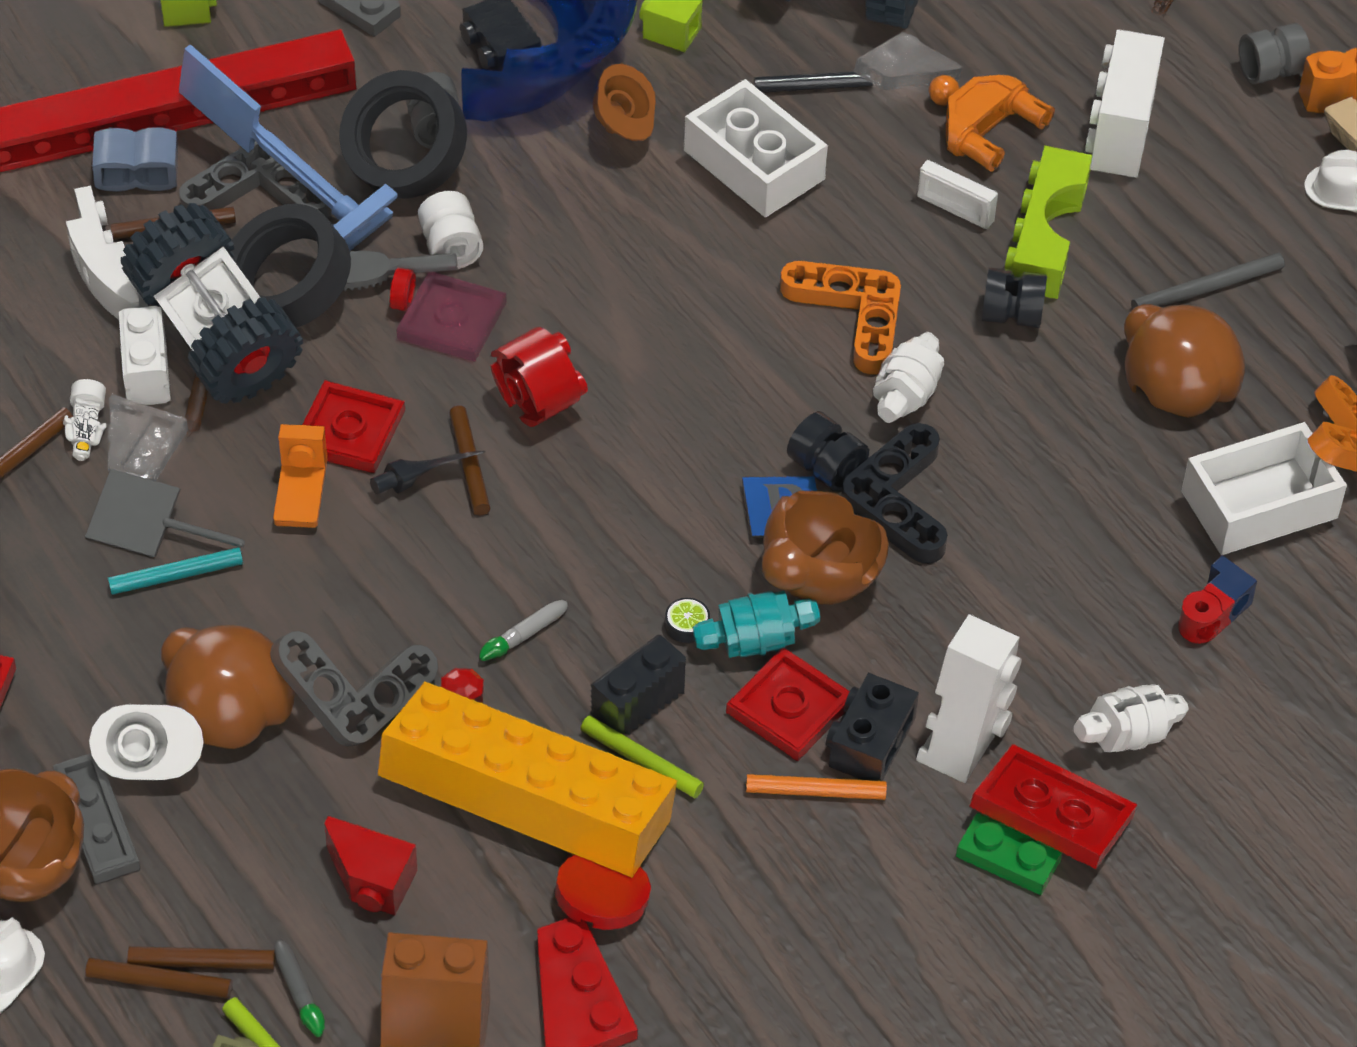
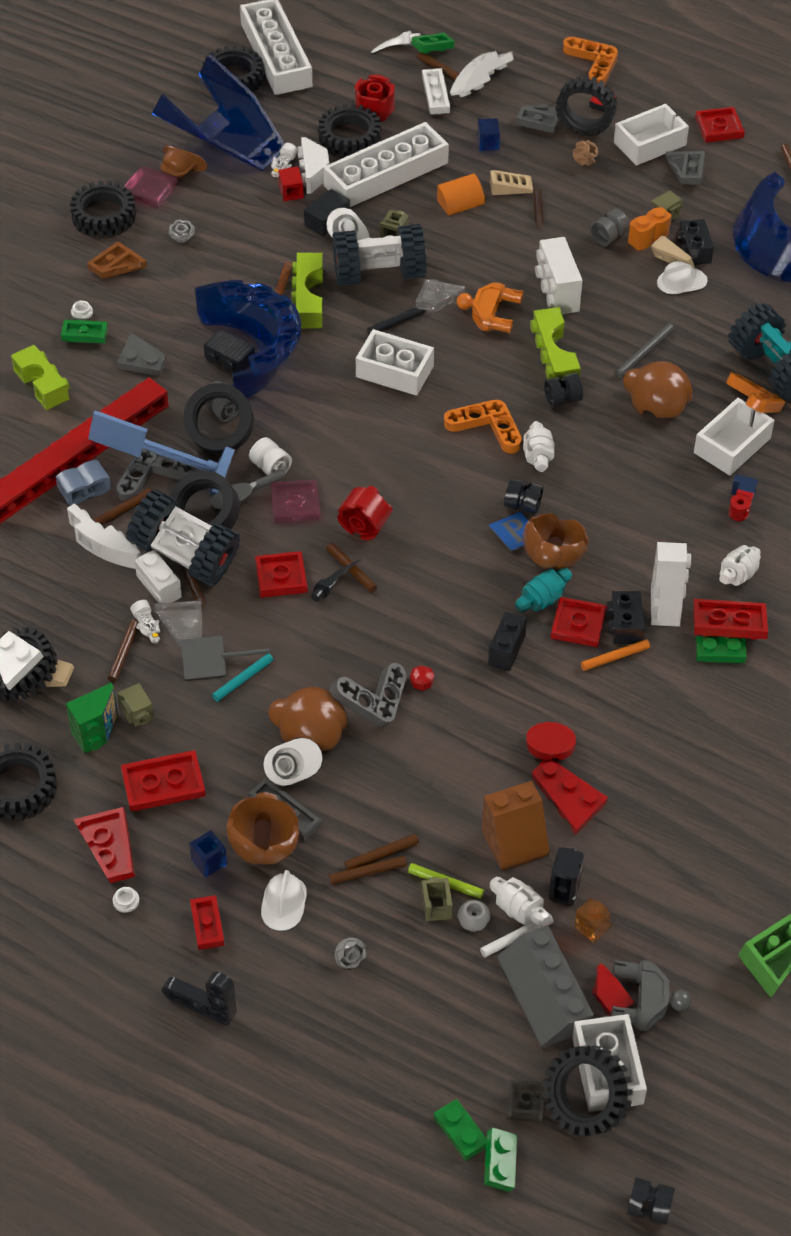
camera: 25 degrees left, 0 degrees up
(301, 475) = (275, 606): orange bracket -> none
(309, 1012) = (451, 855): dark grey piece -> none
(371, 864) = (434, 775): red slope -> none
(402, 289) = (265, 496): red tile -> none
(499, 645) = (425, 650): light grey piece -> none
(527, 778) = (485, 704): light orange brick -> none
(625, 102) = (315, 364): dark orange piece -> none
(640, 755) = (526, 674): lime bar -> none
(682, 616) = (505, 601): tile -> none
(884, 492) = (557, 503): black beam -> none
(957, 194) = (504, 350): white tile -> none

